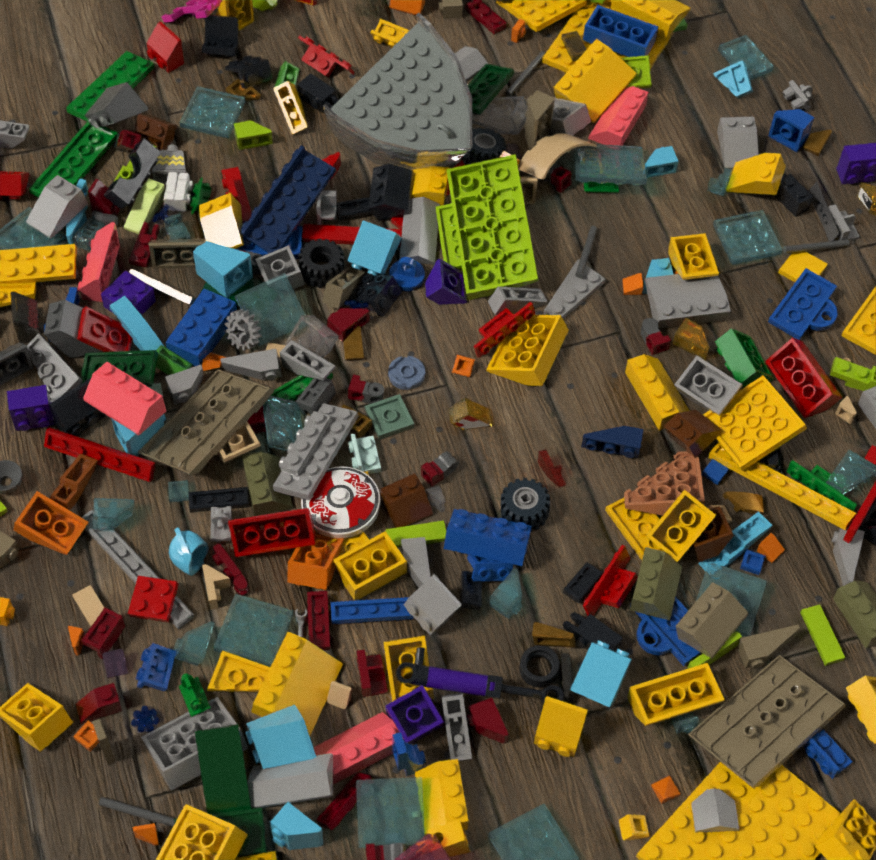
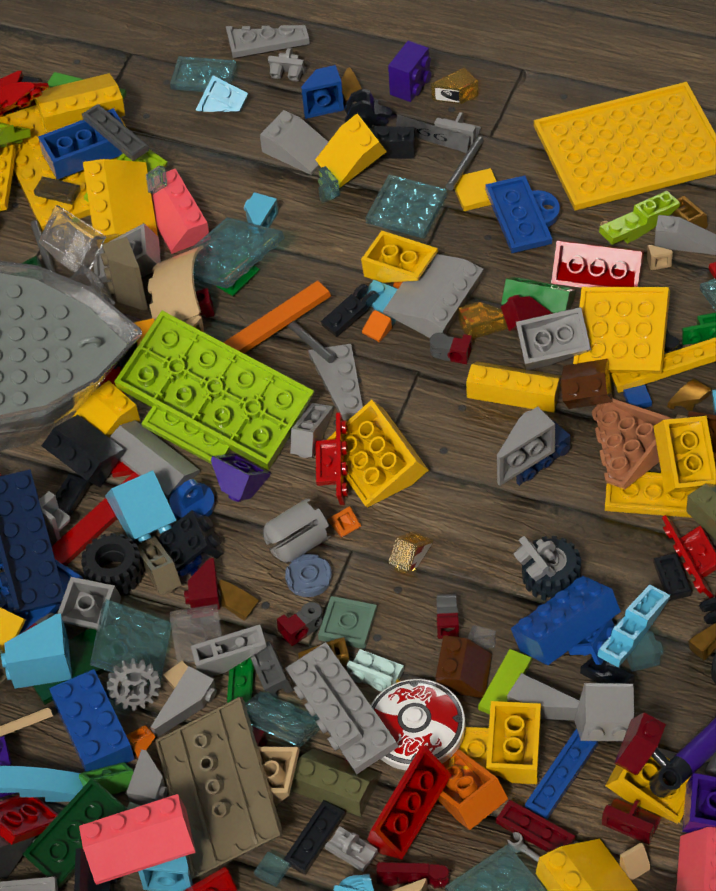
camera: 45 degrees left, 5 degrees down
(415, 636) = (639, 742): none -> dark red slope
(428, 333) = (300, 541): none -> light grey cylinder
(514, 580) = (634, 625): none -> medium azure slope
(518, 486) = (540, 566): none -> light grey hips
(540, 76) = (71, 240): none -> clear slope
(551, 471) = (525, 524): clear red slope -> none
(580, 225) = (279, 317): none -> orange tile
(596, 423) = (526, 445): none -> light grey slope
(628, 88) = (156, 179): none -> clear light blue tile
(631, 260) = (349, 310): none -> black hinge
(638, 39) = (115, 132): none -> dark grey tile
(717, 355) = (521, 309): none -> dark red slope
(801, 163) = (367, 109): none -> black hinge
(804, 67) = (255, 41): none -> light grey wing

